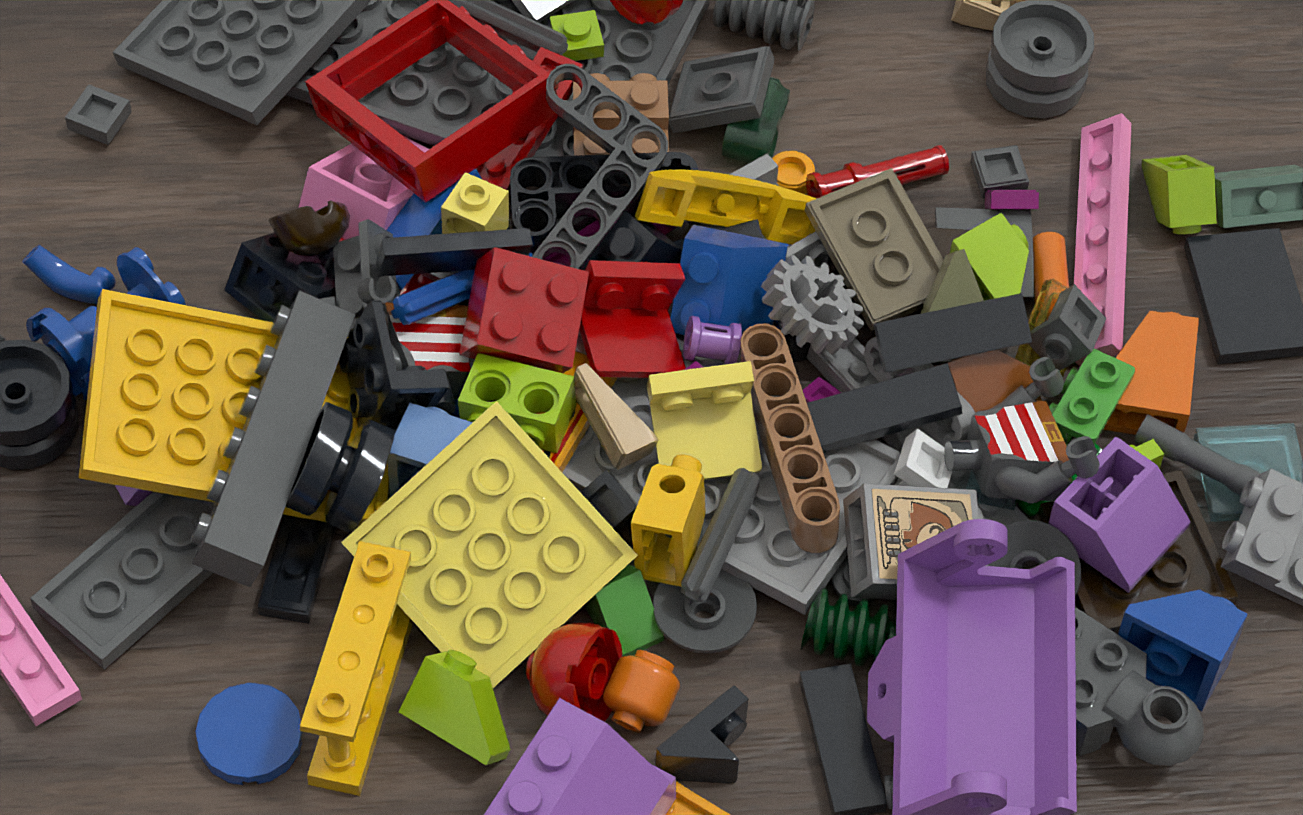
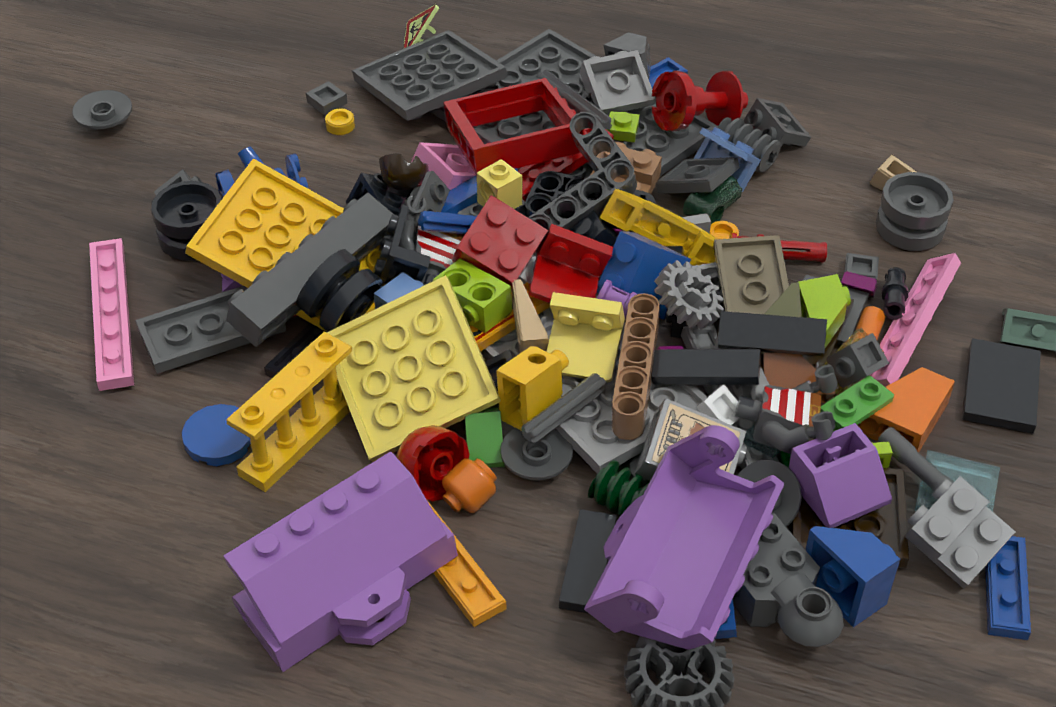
camera: 25 degrees right, 10 degrees down
(138, 149) = (340, 121): none -> yellow tile
(446, 251) = (464, 197): black tile -> none
(458, 706) = (343, 447): lime slope -> none
(700, 747) = (487, 529): black slope -> none
(730, 32) = (717, 146): none -> medium blue bracket
(1063, 199) = (894, 293): none -> black pin
(1181, 192) = (979, 311): lime slope -> none

